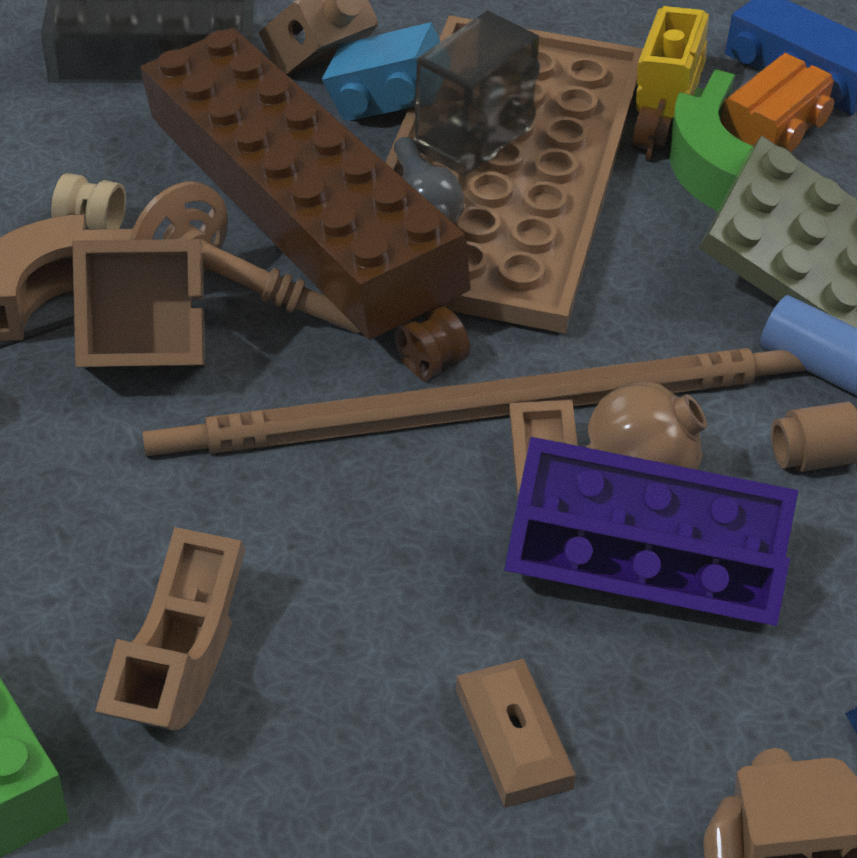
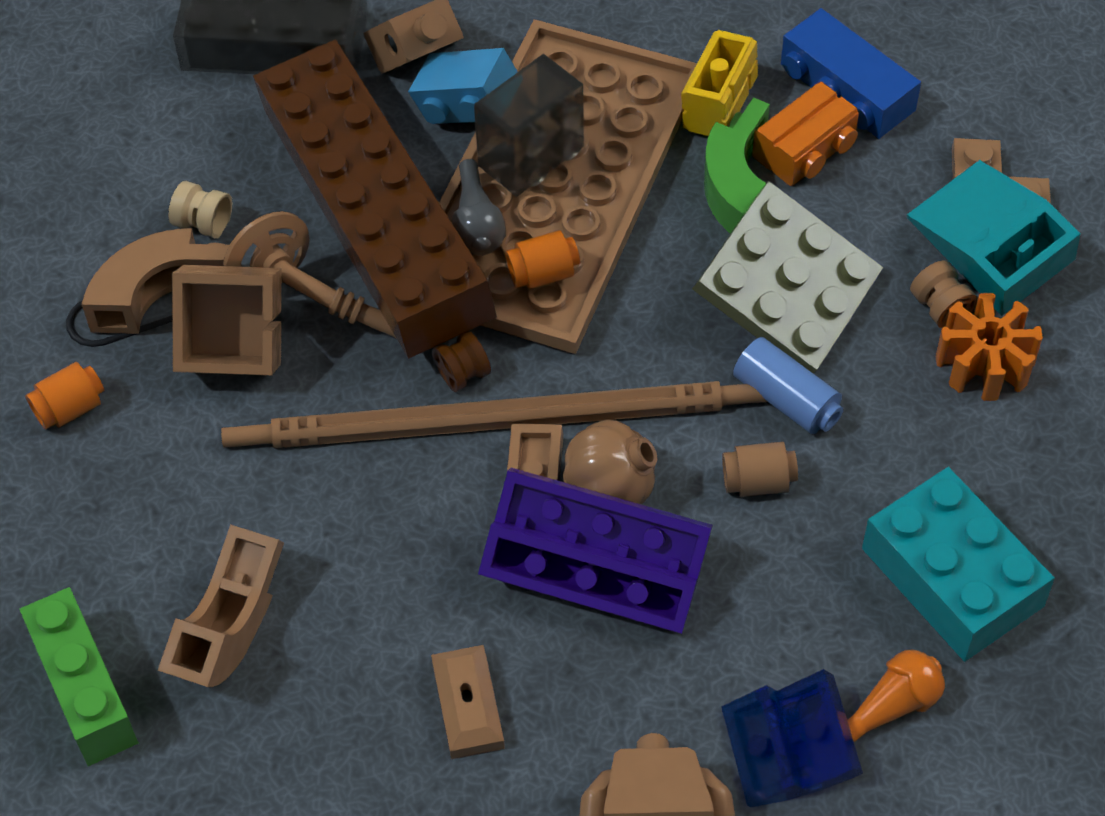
camera: 10 degrees right, 10 degrees up
(514, 228) = (542, 260): none -> orange brick
(652, 129) = (689, 152): reddish brown plate -> none

